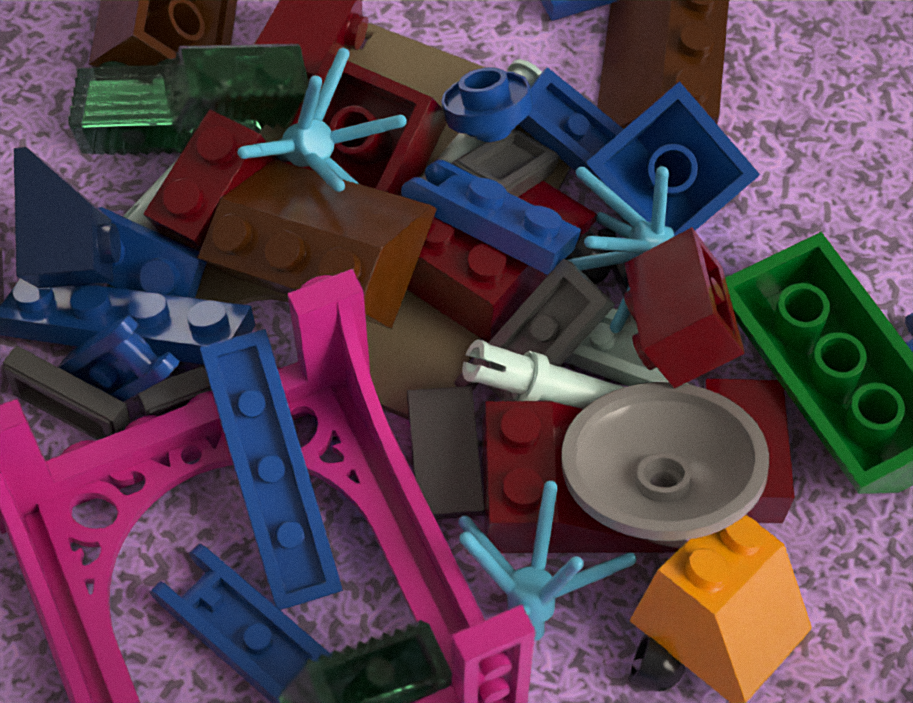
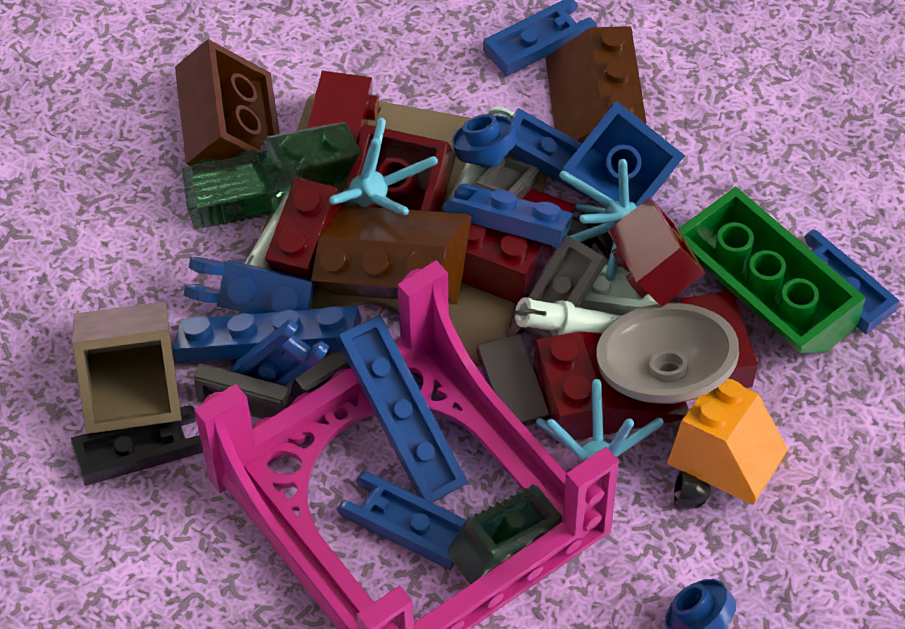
camera: 10 degrees left, 5 degrees down
(58, 230) = (213, 276): dark blue slope -> none

